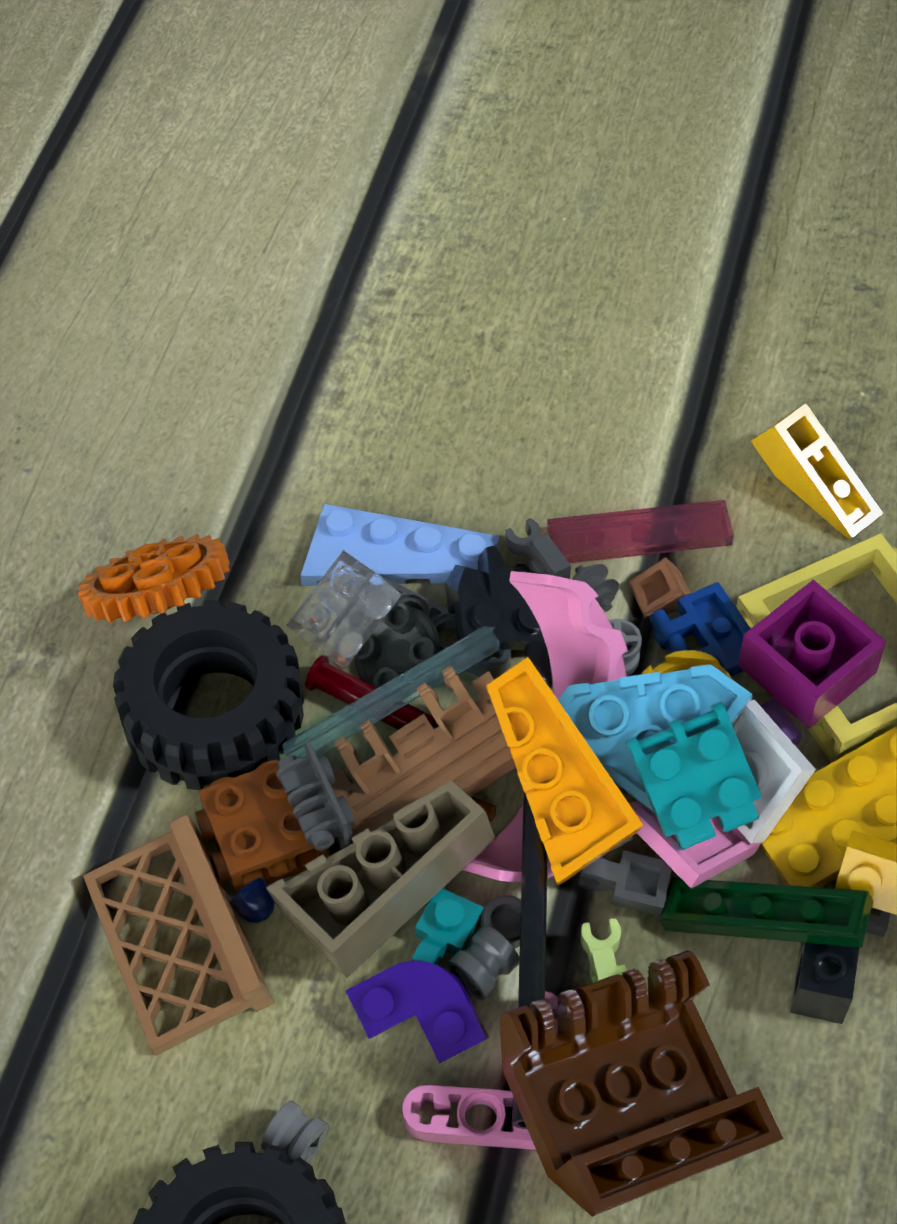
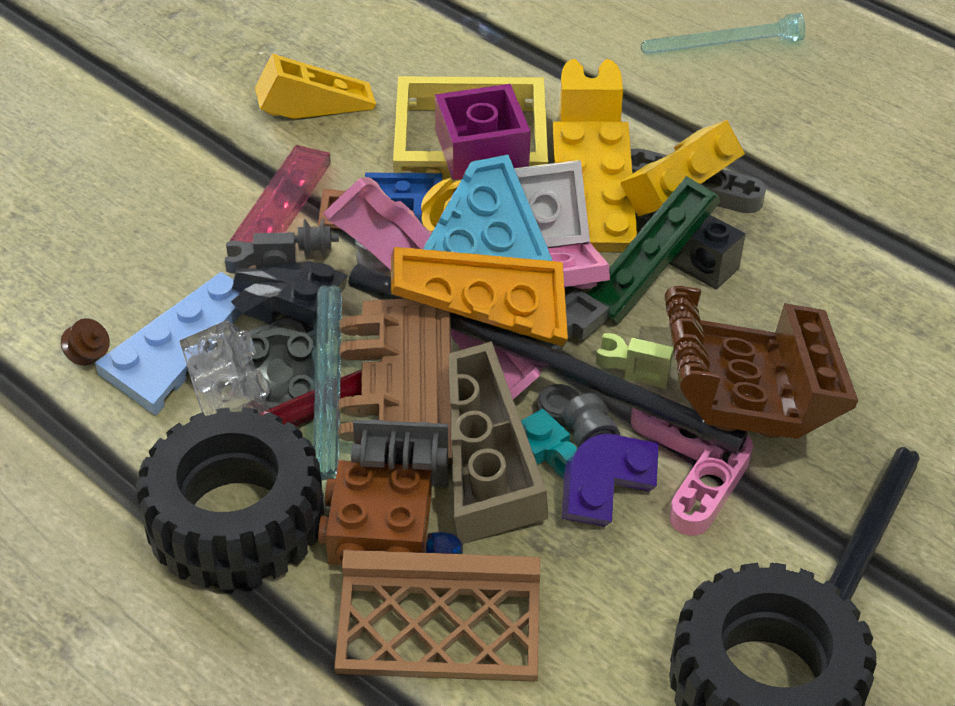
camera: 65 degrees left, 10 degrees down
(154, 578) = (66, 513): orange gear -> none
(295, 1133) = (668, 596): light grey wheel -> none
(340, 482) = (85, 342): none -> reddish brown wheel
(697, 778) = (547, 219): teal plate -> none

